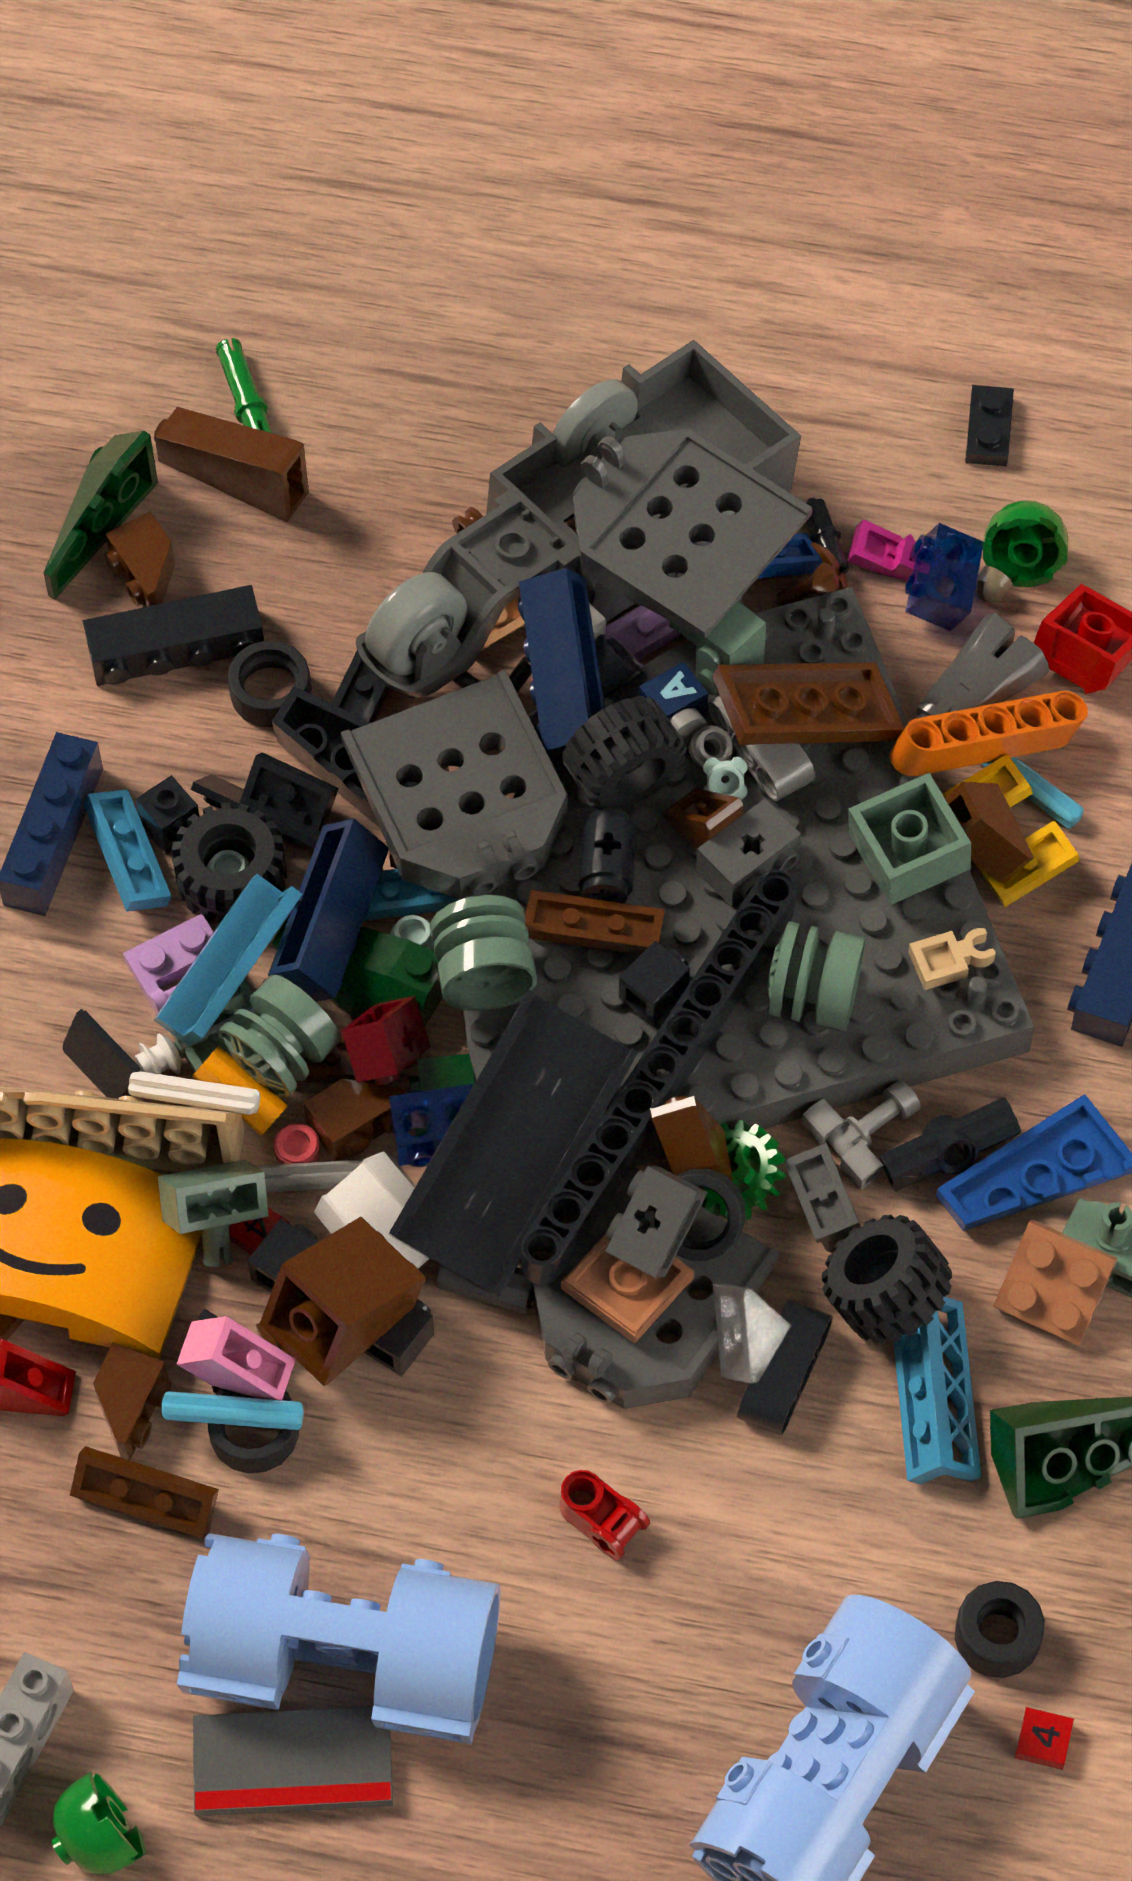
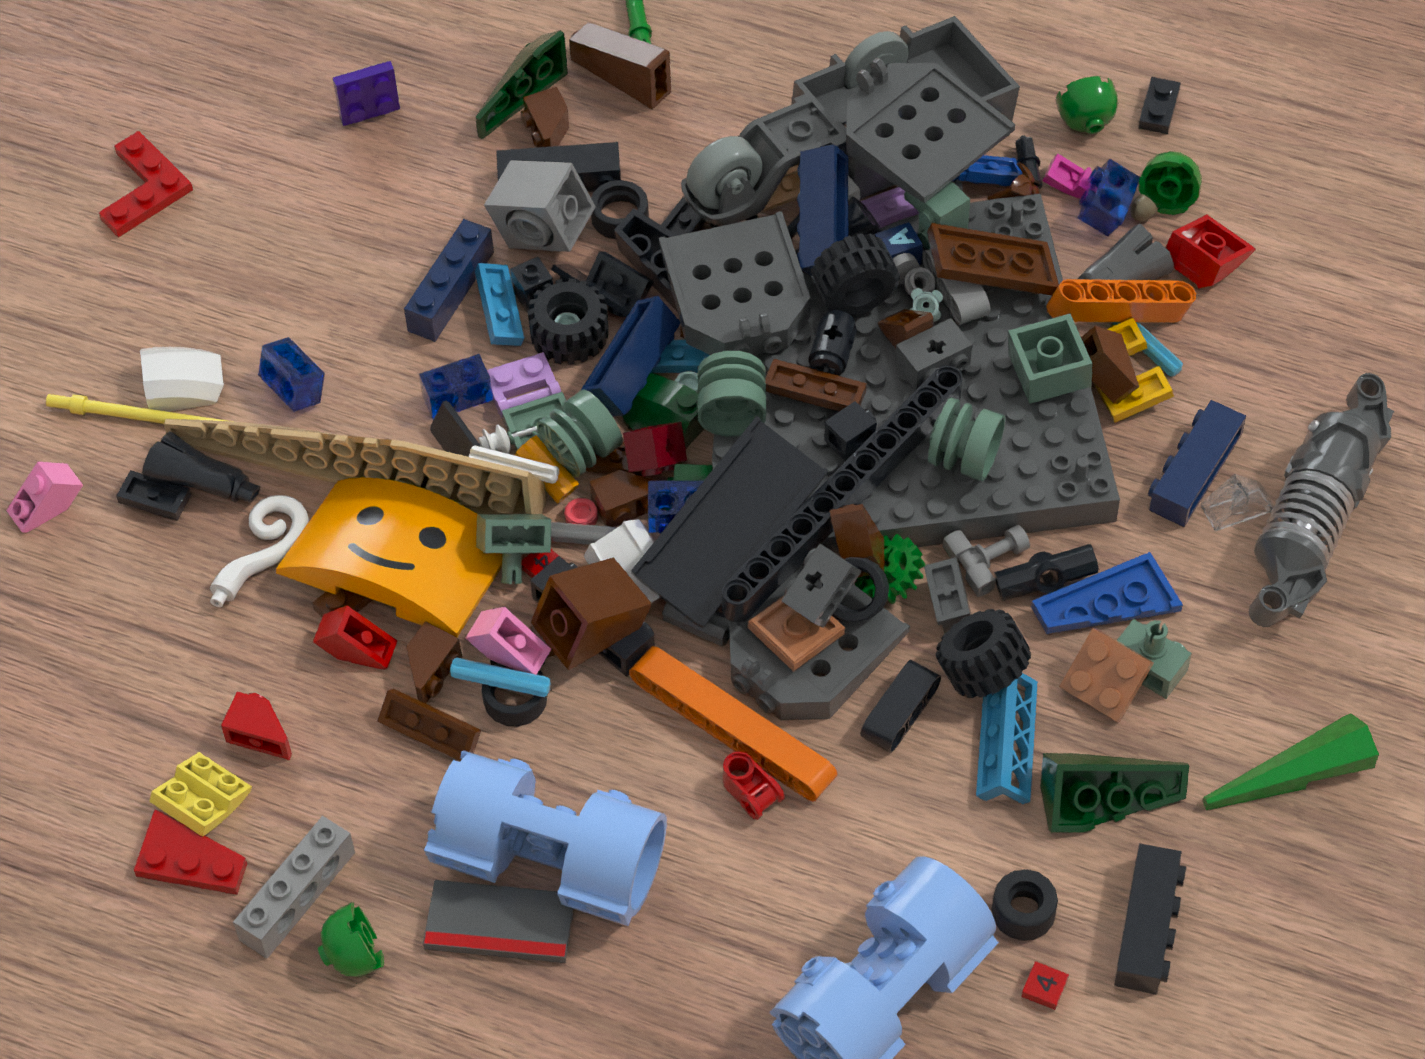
camera: 10 degrees right, 5 degrees down
(90, 981) = (460, 383): none -> clear blue brick
(160, 698) = (540, 205): none -> light grey brick
(226, 960) = (551, 379): dark azure fence -> none
(561, 1426) = (733, 723): none -> orange beam
(746, 1332) = (875, 674): clear slope -> none
(894, 442) = (1088, 104): none -> green cylinder
(945, 960) = (1061, 443): tan plate -> none

